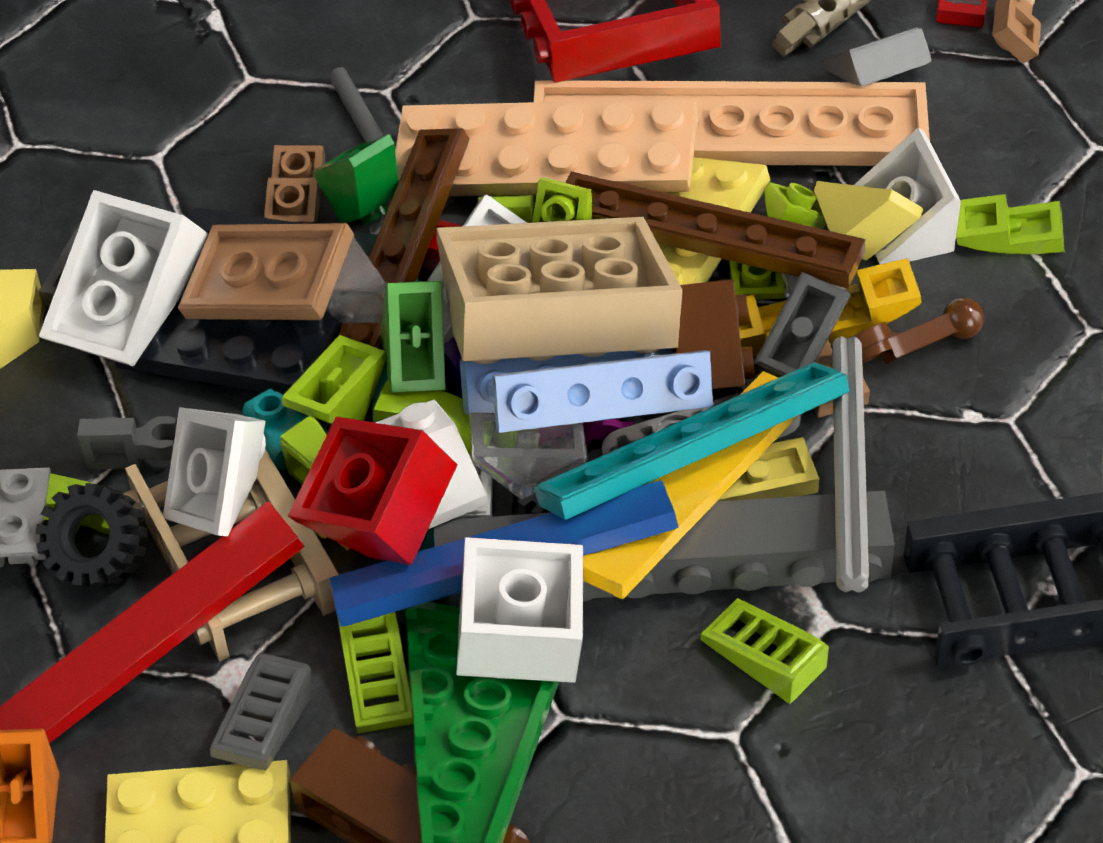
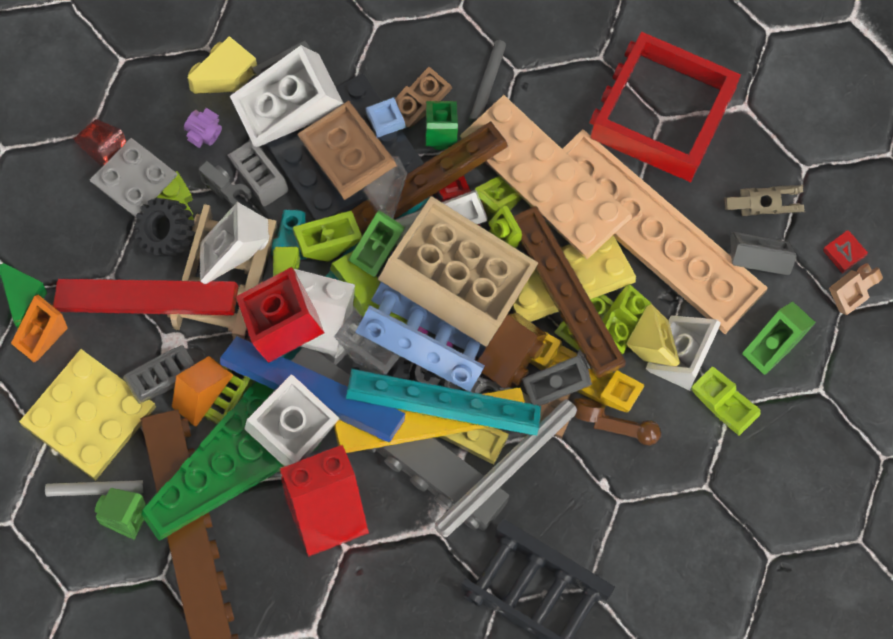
camera: 35 degrees right, 20 degrees up
(33, 397) = (202, 127): none -> medium lavender gear
(189, 388) = (269, 187): none -> light grey slope
(279, 209) = (385, 117): none -> light blue tile
(337, 686) = (199, 388): none -> orange slope
(660, 663) = (324, 500): none -> red slope
(784, 680) = (397, 544): lime slope -> none
(995, 121) = (778, 337): none -> bright green slope

